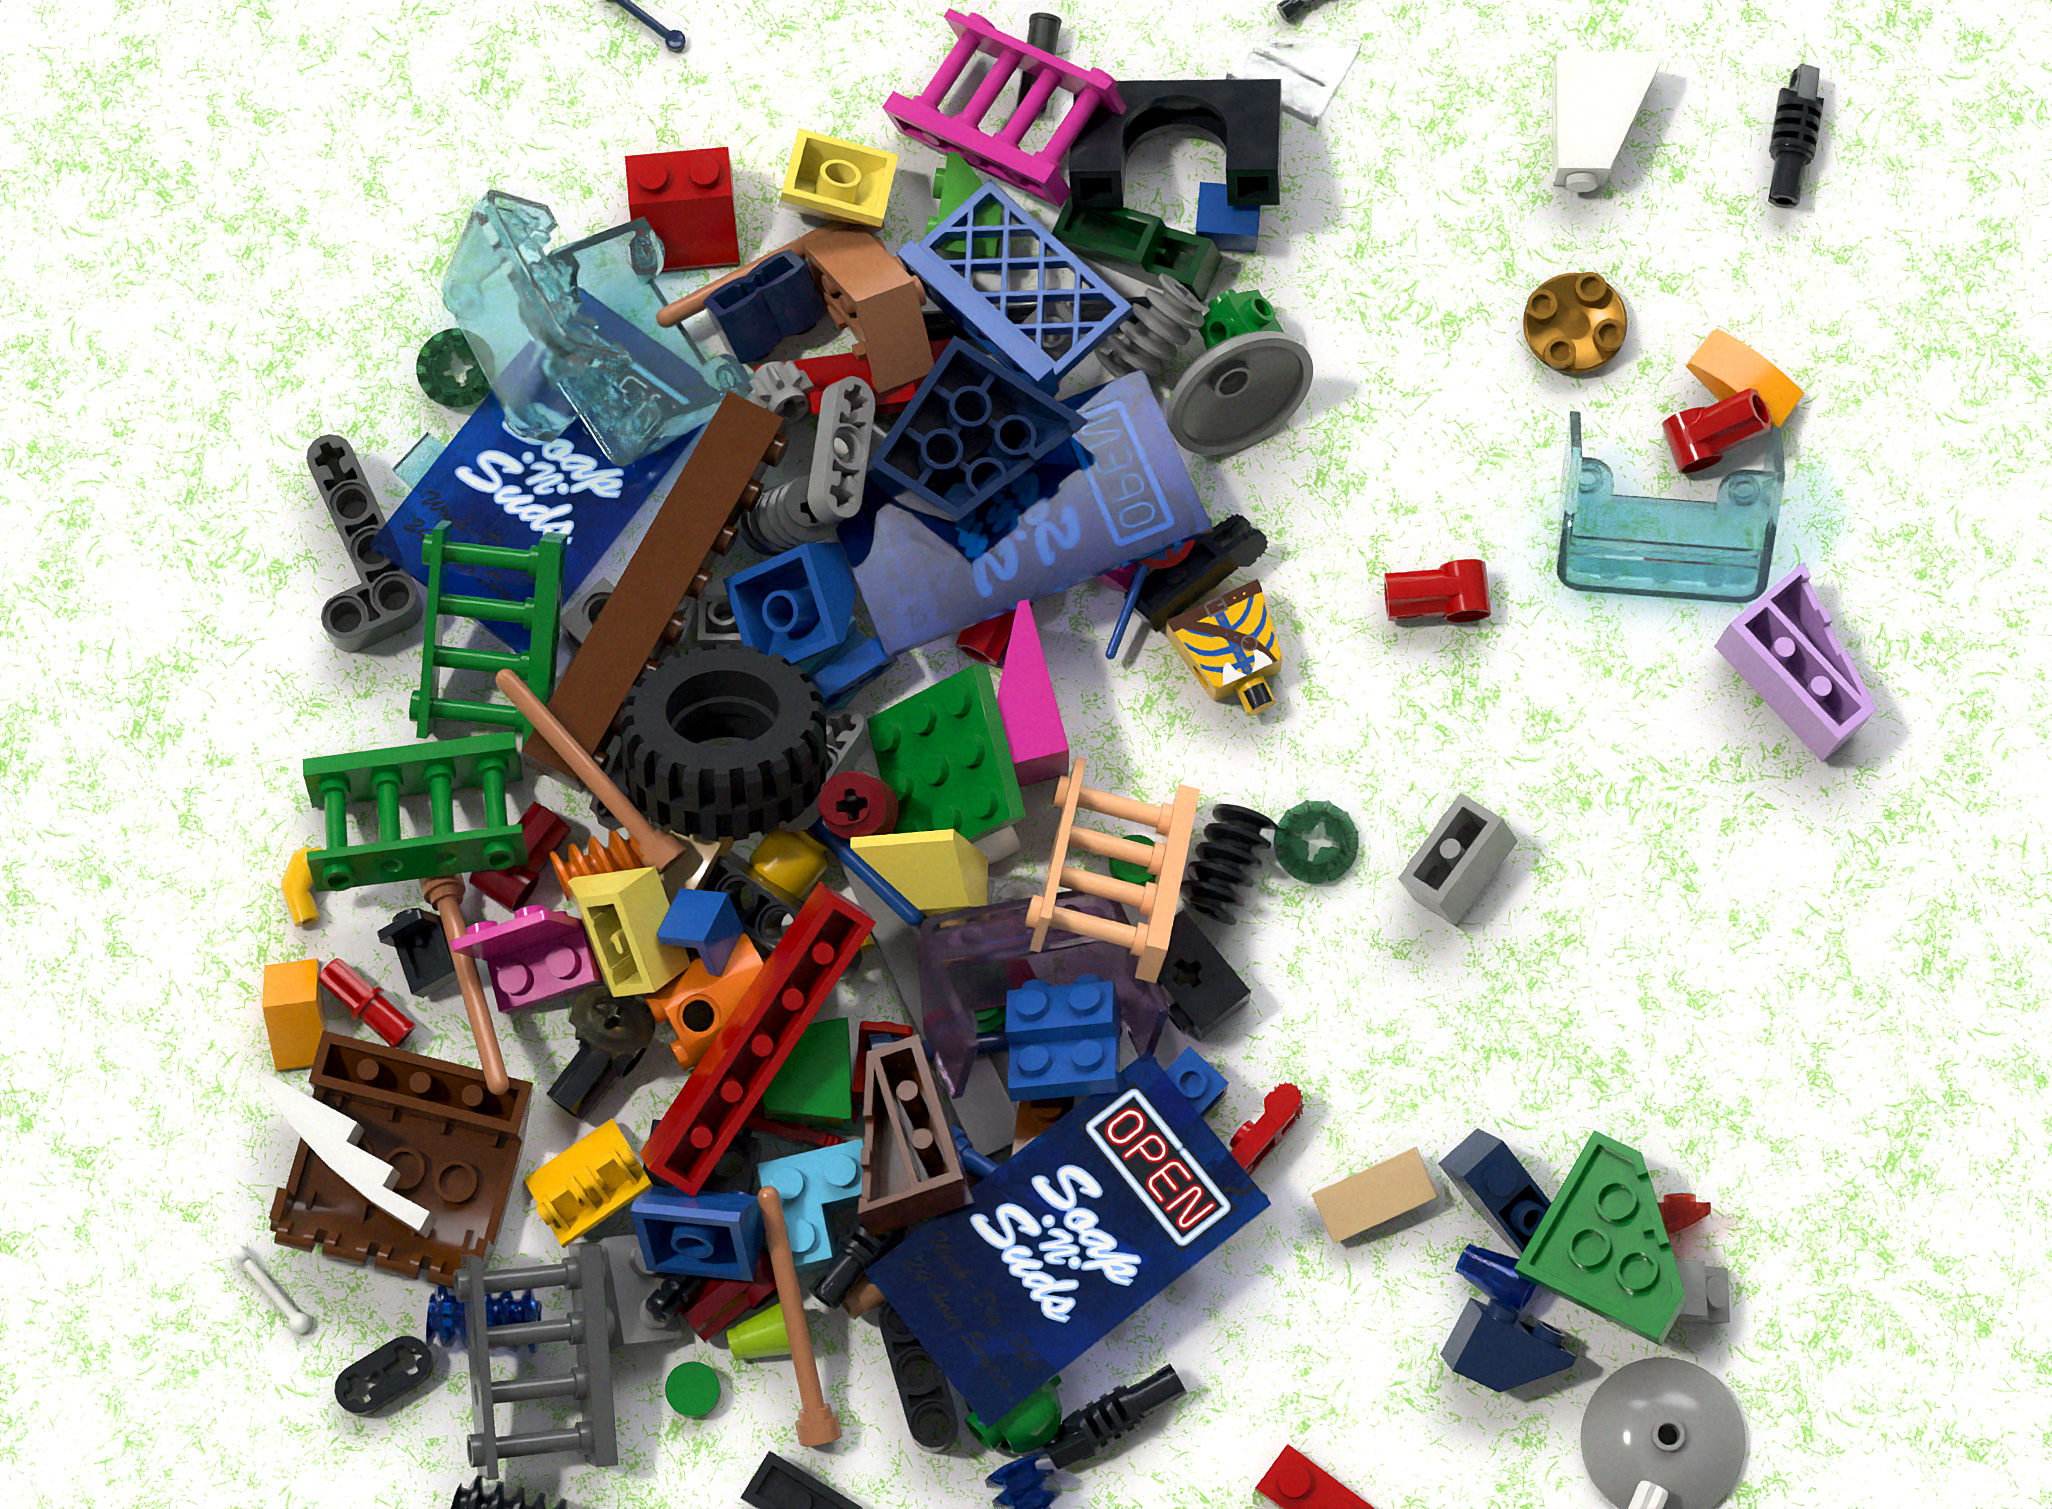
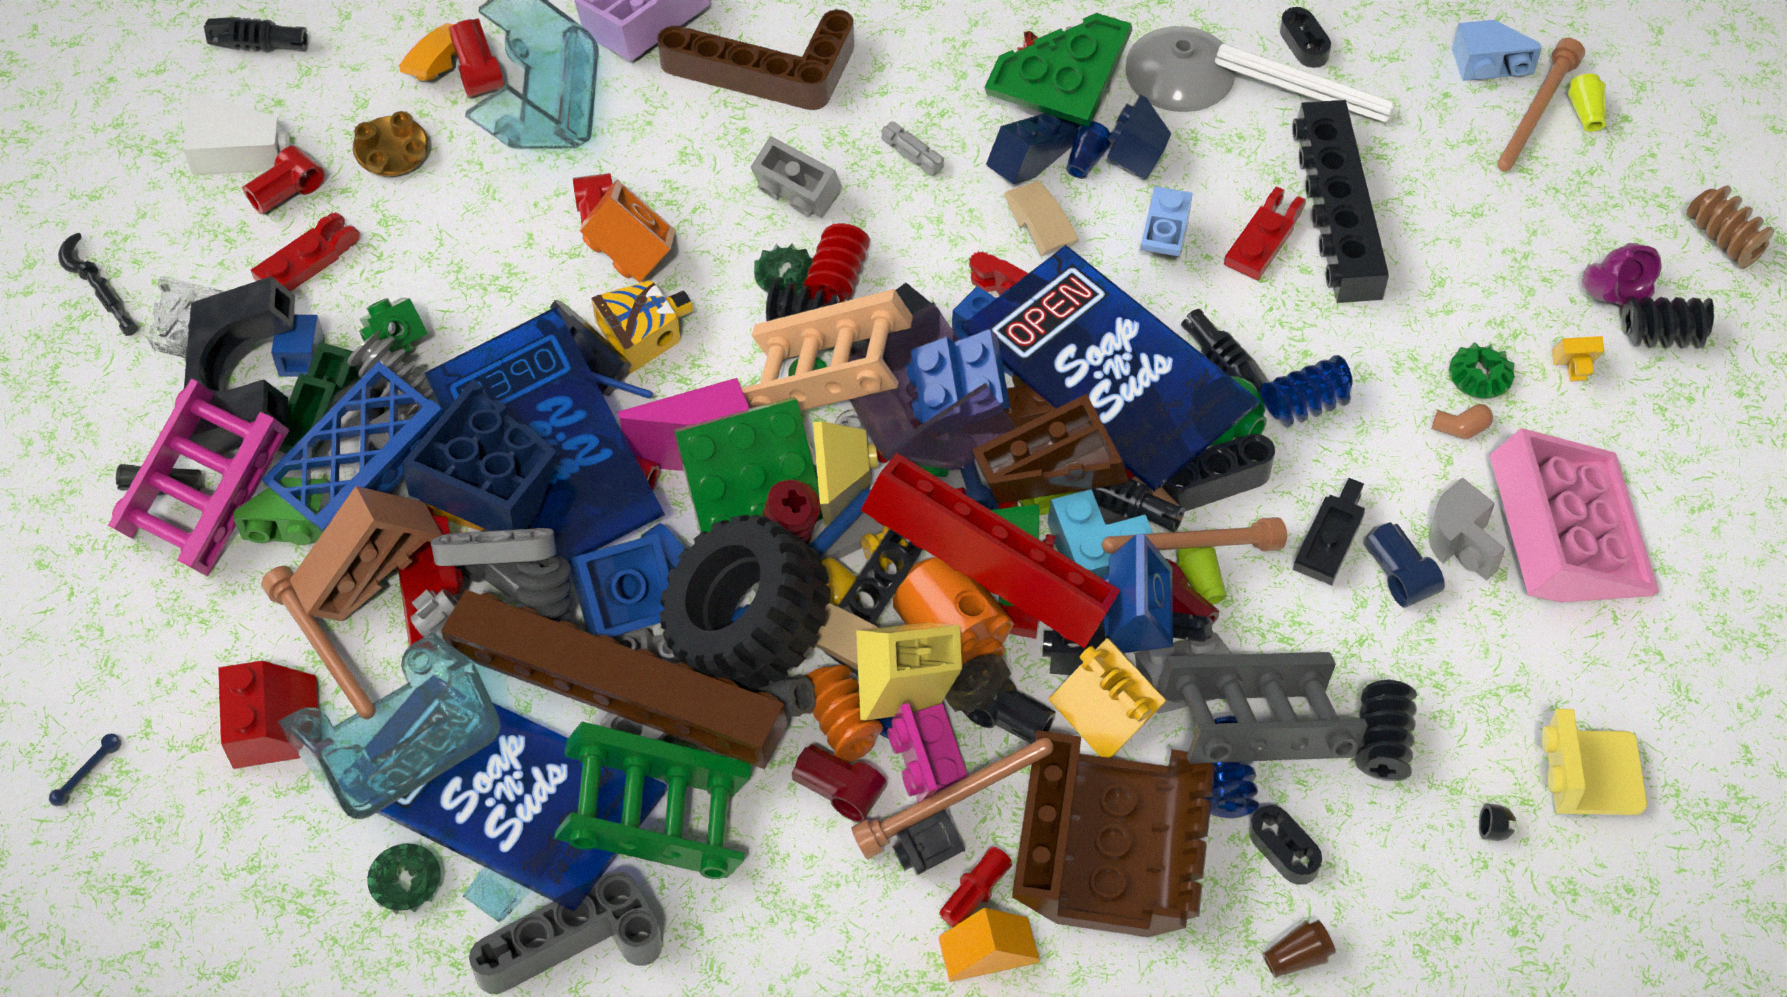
camera: 95 degrees left, 20 degrees down
(244, 1370) = (1300, 949): none -> reddish brown cone
(296, 889) = (873, 956): yellow arm -> none
(299, 1321) = (1250, 918): white hinge -> none
(335, 1142) = (1107, 879): white slope -> none
(410, 771) = (768, 848): green fence -> none
(521, 320) = (369, 795): clear light blue windscreen -> none
(656, 846) = (838, 640): nougat piece -> none
(692, 1389) = (1254, 624): green tile -> none
(703, 922) = (898, 602): blue panel -> none
(765, 307) = (359, 638): dark blue brick -> none
(838, 179) = (254, 592): light yellow slope -> none
(1239, 392) = (438, 310): light grey dish -> none
(1305, 907) = (838, 261): none -> red piece
(1328, 1361) = (1167, 221): none -> light blue slope
(1372, 631) = (627, 232): none -> orange slope
(1386, 218) = (308, 253): none -> red hinge
(1523, 1031) = (912, 148): none -> light grey axle
(1524, 196) = (291, 173): none -> red piece
(1682, 830) = (762, 71): none -> reddish brown beam

